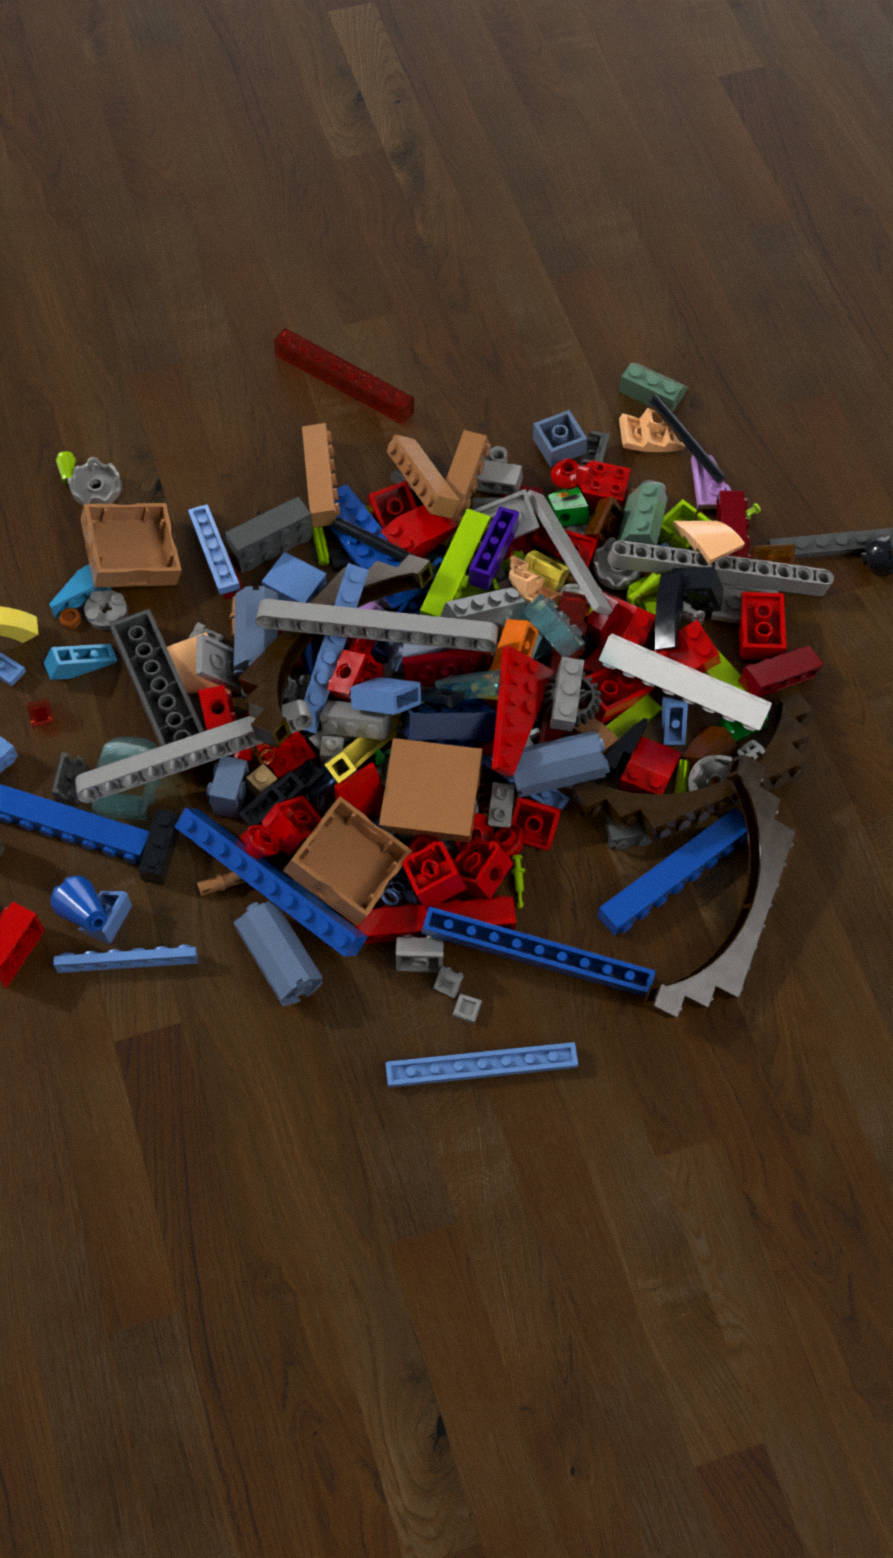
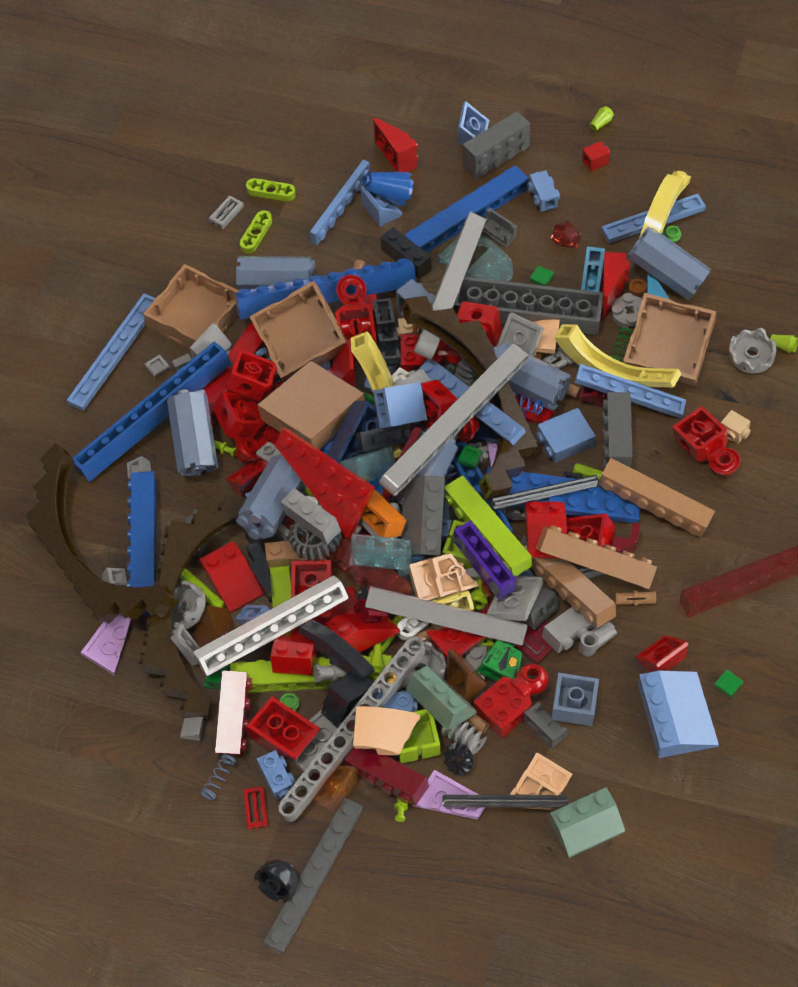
camera: 130 degrees right, 5 degrees down
(36, 583) = (668, 263): none -> sand blue brick
(85, 626) = (613, 278): none -> red slope
(108, 708) = (541, 276): none -> green tile
(148, 1071) = (258, 192): none -> lime beam
(178, 590) = (622, 335): none -> green piece
(192, 583) = (584, 352): none -> light yellow arch
(194, 460) = (736, 427): none -> tan brick
(211, 1091) = (229, 212): none -> light grey tile
(227, 468) = (706, 441): none -> red brick
(229, 1034) = (256, 225): none -> lime beam
(373, 1013) = (191, 306): none -> medium nougat tile
(375, 477) = (627, 544): none -> dark red slope
(429, 451) = (648, 598): none -> medium nougat pin
(457, 355) = (728, 683): none -> green tile
(468, 403) = (663, 654): none -> red slope
(513, 375) = (676, 712): none -> slope
(537, 889) = (192, 432): none -> sand blue brick
(599, 939) = (138, 465): none -> light grey slope
(673, 486) = (462, 751): none -> black gear
(727, 648) = (290, 700): none -> bright green plate
(729, 875) = (115, 576): none -> light grey slope
(801, 610) = (275, 775): none -> medium blue brick
(808, 829) = (107, 644): none -> lavender wing
(815, 702) = (192, 728): none -> light grey slope
(824, 627) = (257, 824): none -> red tile
(853, 656) = (204, 791): none -> sand blue piece

